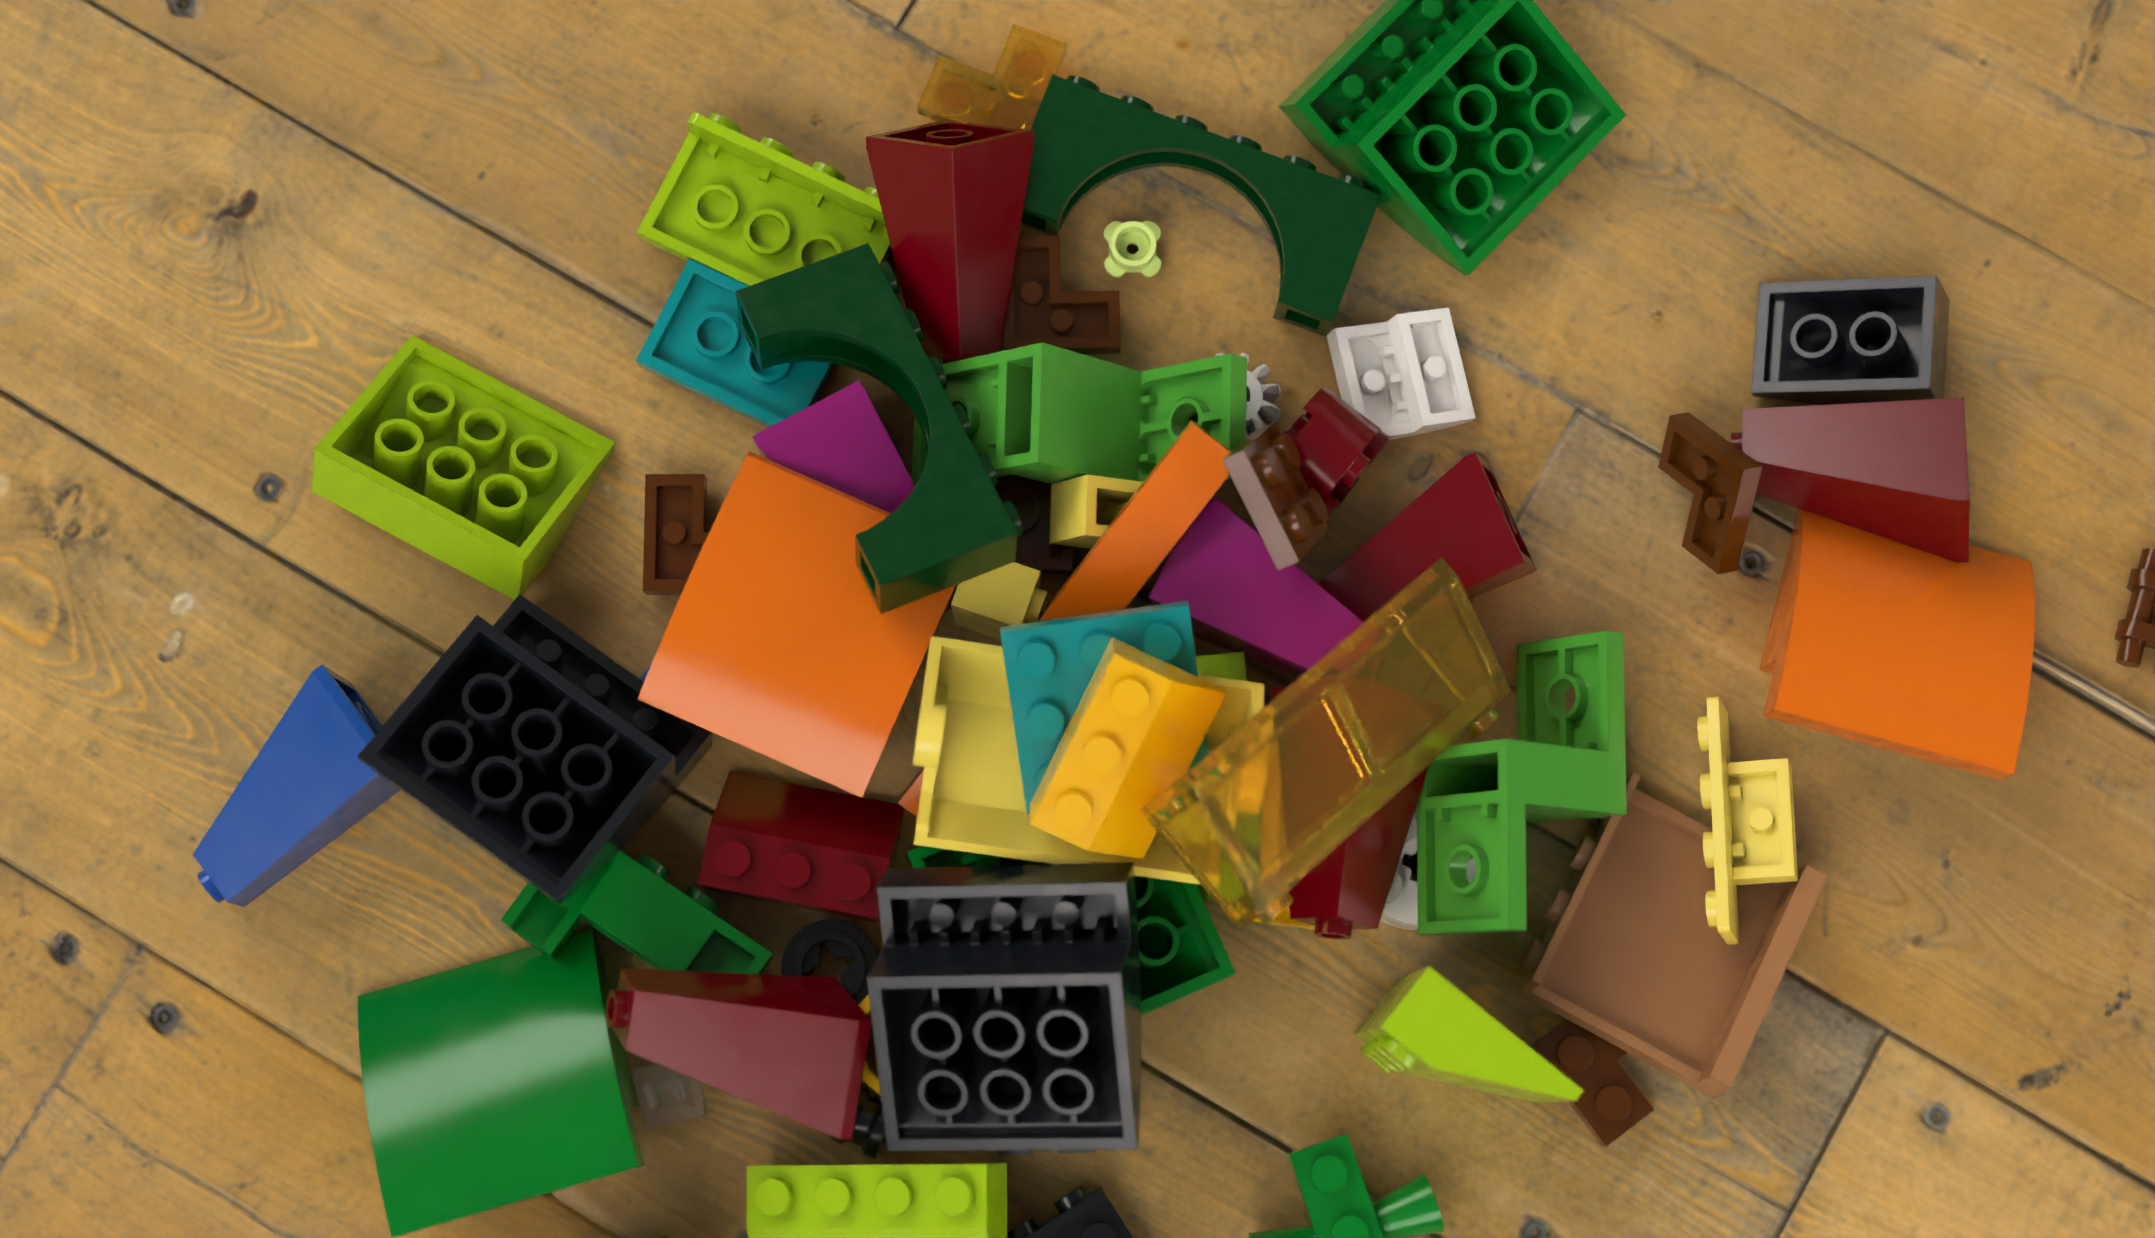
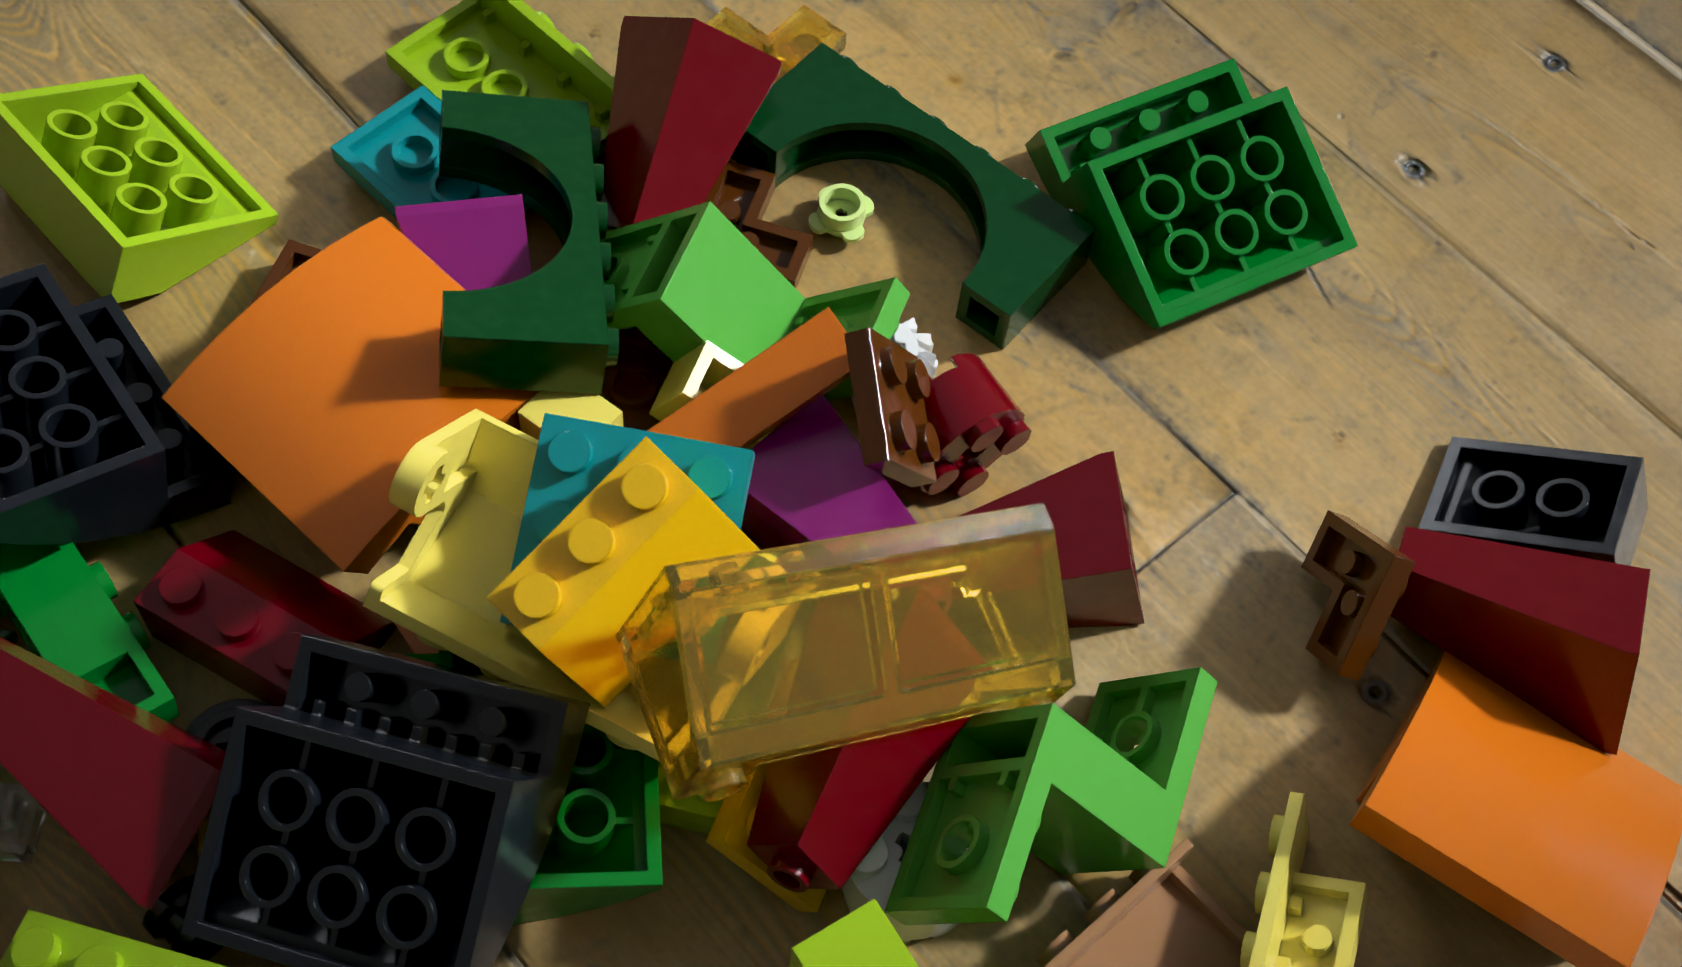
camera: 15 degrees right, 20 degrees down
(1403, 373) = (1069, 398): white slope -> none

